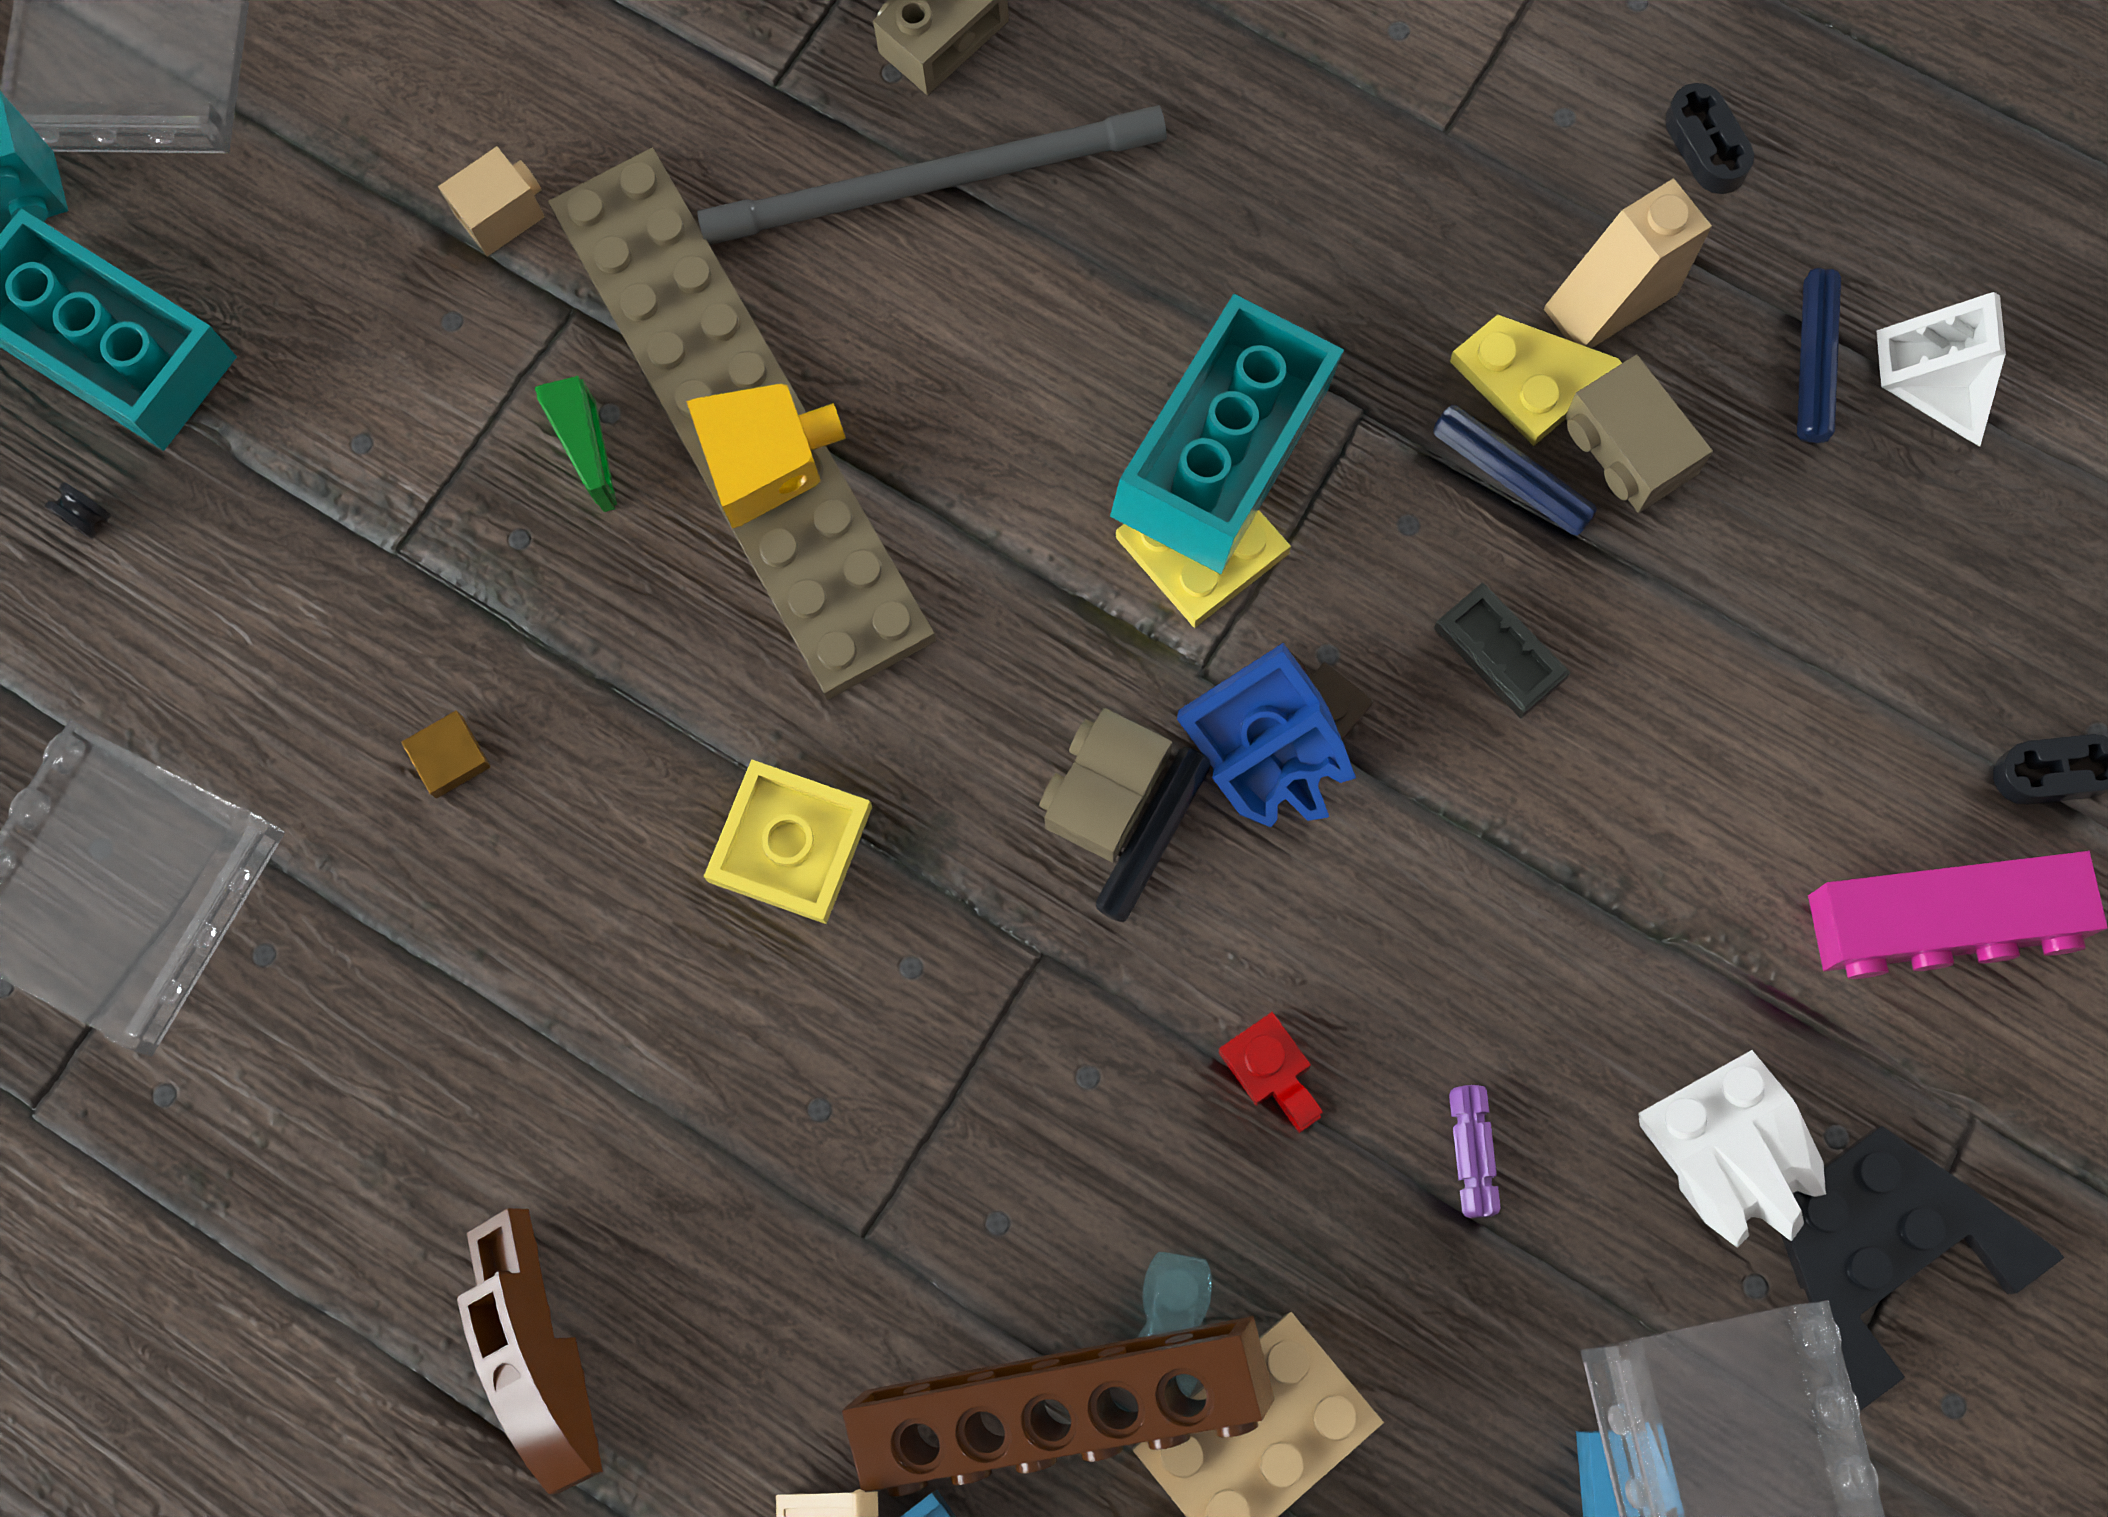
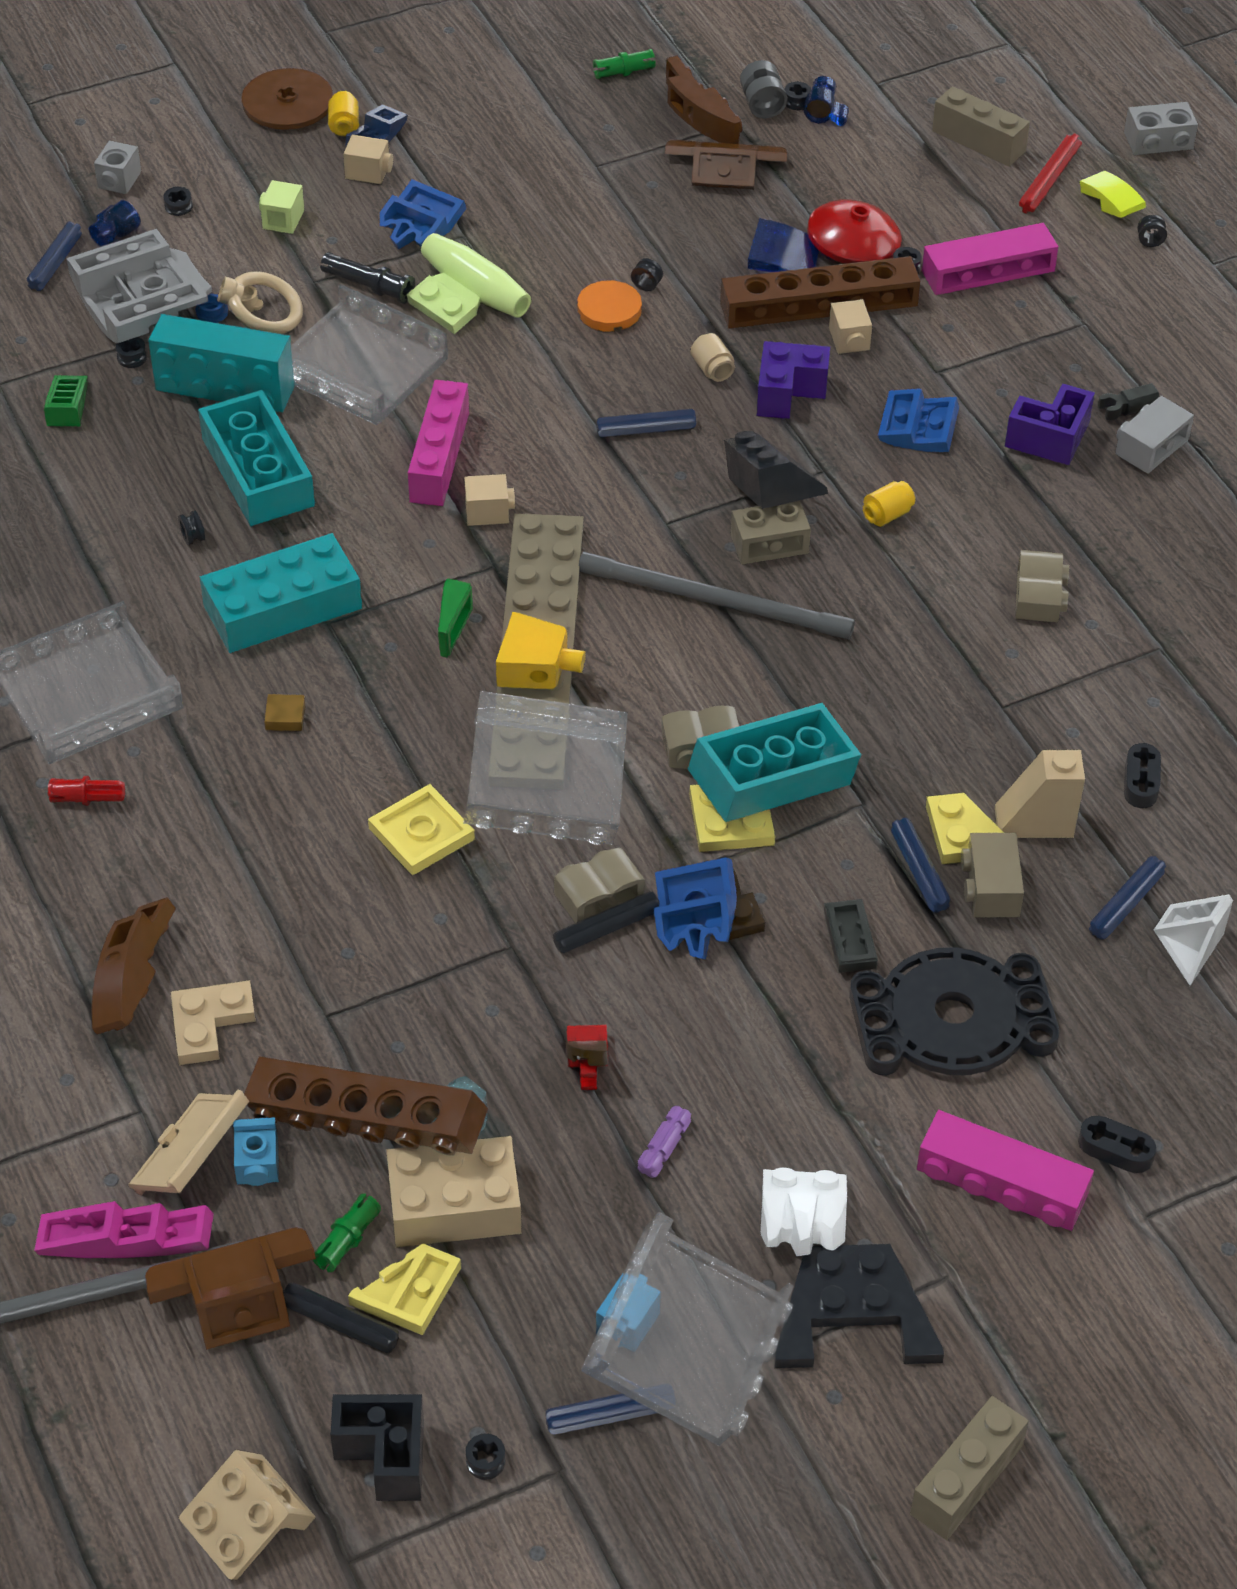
camera: 25 degrees right, 25 degrees down
(244, 1080) = (85, 790): none -> red axle
(297, 551) = (281, 592): none -> teal brick
(350, 139) = (438, 443): none -> dark pink brick
(680, 1359) = (201, 1011): none -> tan plate
(911, 638) = (546, 768): none -> clear panel
(1081, 439) = (683, 728): none -> dark tan brick
(1294, 1086) = (594, 1051): none -> dark brown tile
(1678, 741) = (965, 1048): none -> black piece

